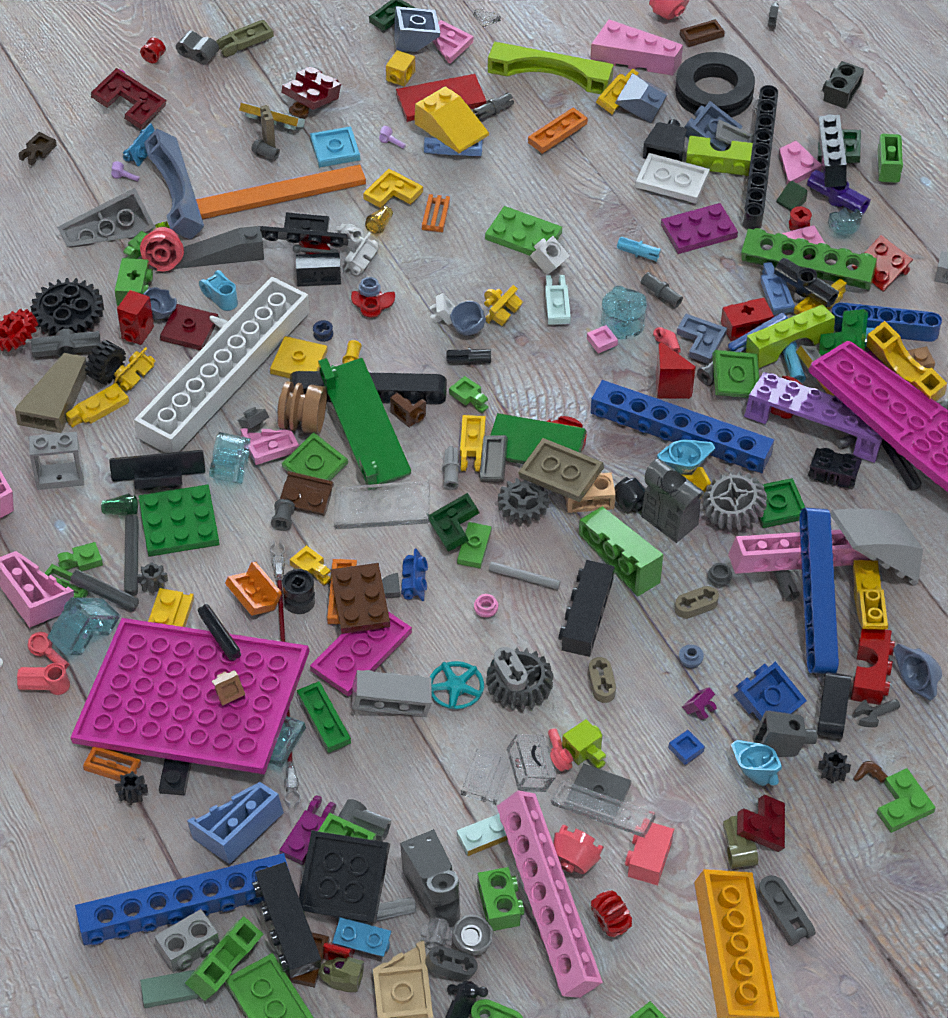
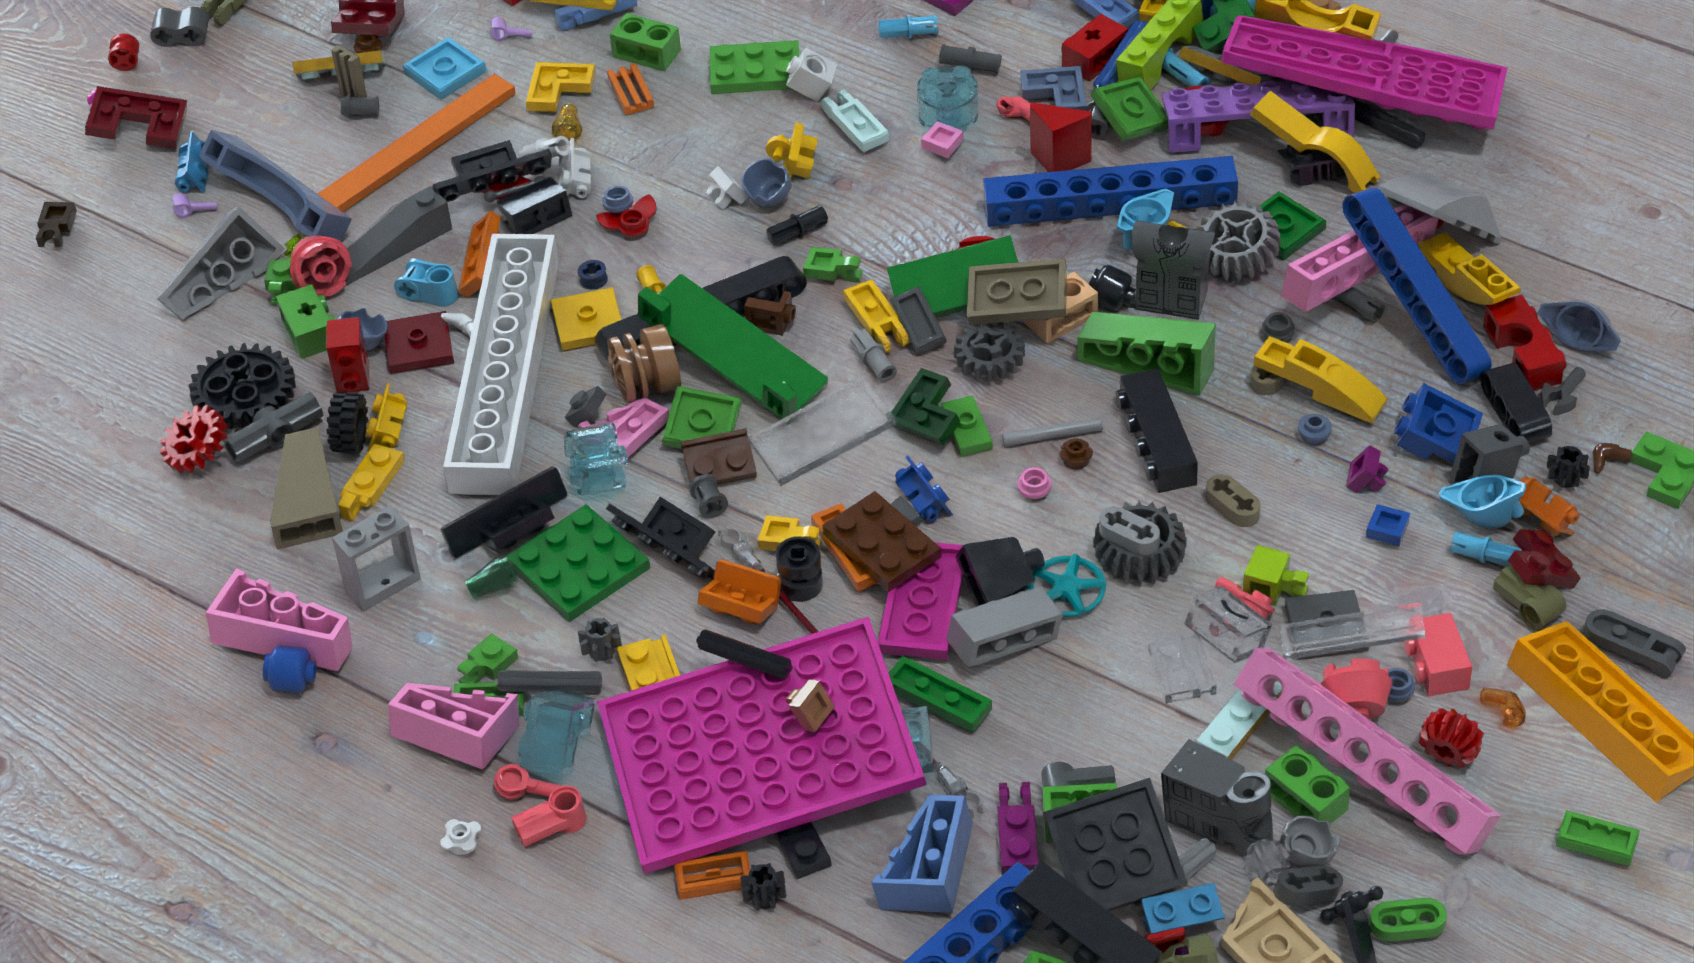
camera: 25 degrees left, 5 degrees down
(131, 555) = (548, 626): dark grey axle -> none
(243, 528) = (672, 529): none -> black bracket
(277, 271) = (477, 253): none -> orange plate
(416, 653) = (998, 568): none -> black torso
(466, 184) = (645, 42): none -> bright green brick
(527, 602) = (1076, 453): none -> reddish brown plate
(610, 853) = (1403, 685): none -> sand blue plate
(670, 915) = (1509, 704): none -> clear orange arm
(719, 624) = (1328, 376): none -> yellow slope
(735, 795) = (1482, 549): none -> medium azure axle
(797, 796) = (1555, 515): none -> orange hinge
(832, 448) = (1305, 134): none -> yellow piece

